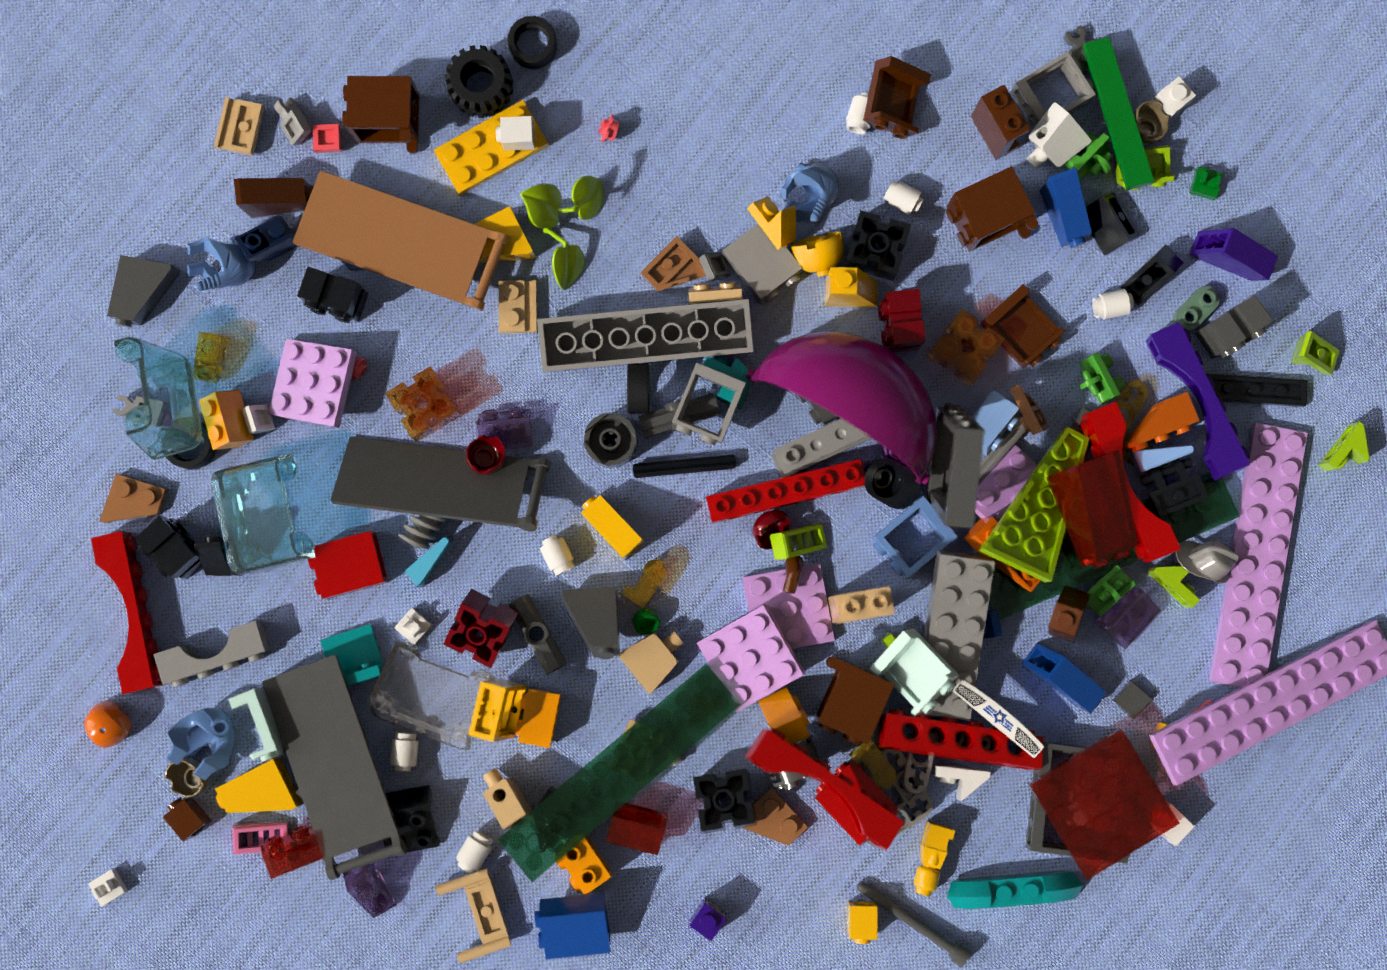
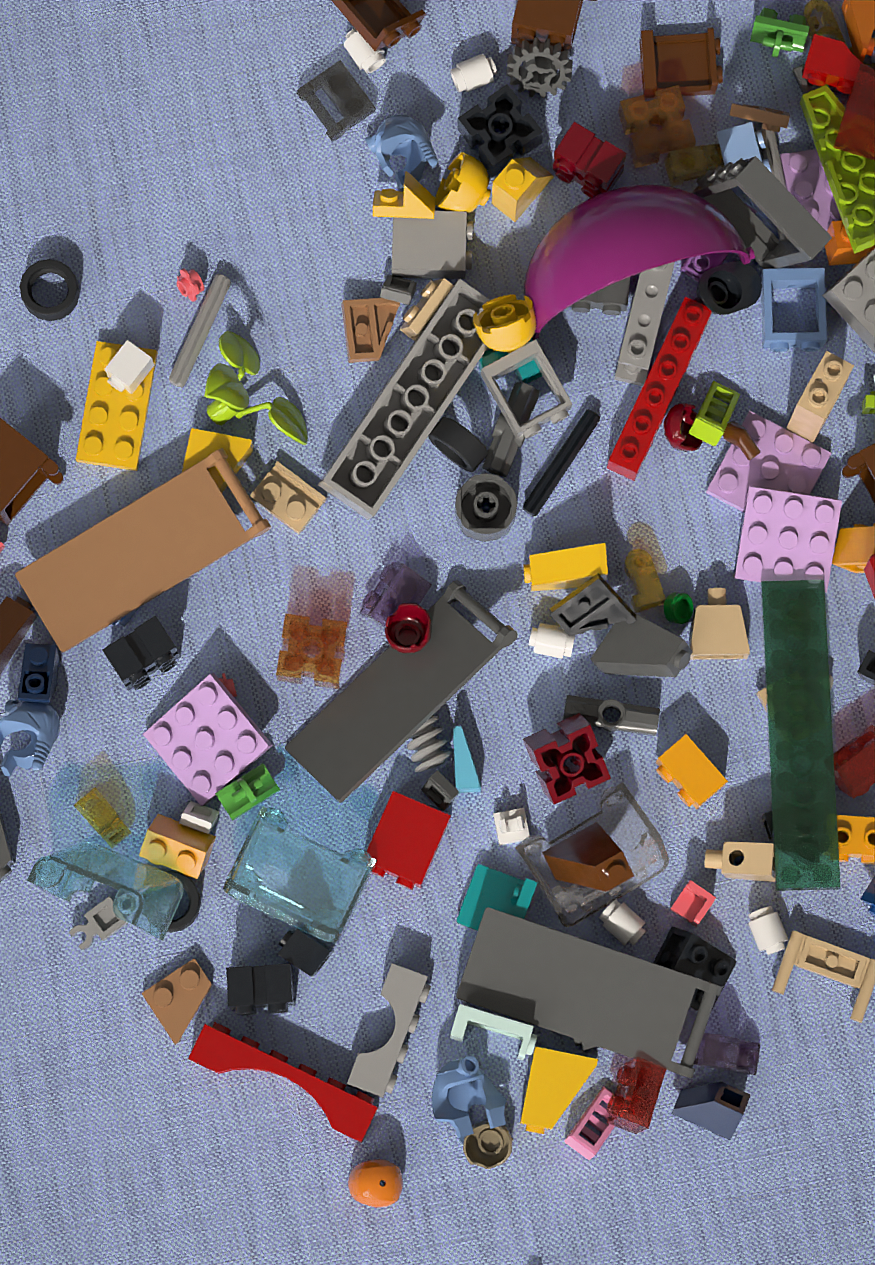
camera: 55 degrees left, 5 degrees down
(186, 818) = (524, 1175): reddish brown brick -> none
(298, 436) = (247, 792): none -> bright green hips
(325, 907) = (712, 1107): none -> dark blue slope
(398, 561) = (440, 791): none -> dark grey tile
(423, 698) = (589, 860): none -> reddish brown slope
(453, 788) = (693, 903): none -> coral panel
(479, 61) = (44, 341): black tyre -> none
(493, 710) = (659, 809): yellow window -> none
(584, 160) = (199, 330): none -> light grey axle
(594, 564) = (591, 608): none -> black wing
(740, 353) = (506, 323): none -> yellow cylinder
(819, 126) = (343, 93): none -> clear smoke plate
(941, 237) = (539, 67): none -> dark grey gear
(961, 392) = (692, 162): none -> clear yellow leg

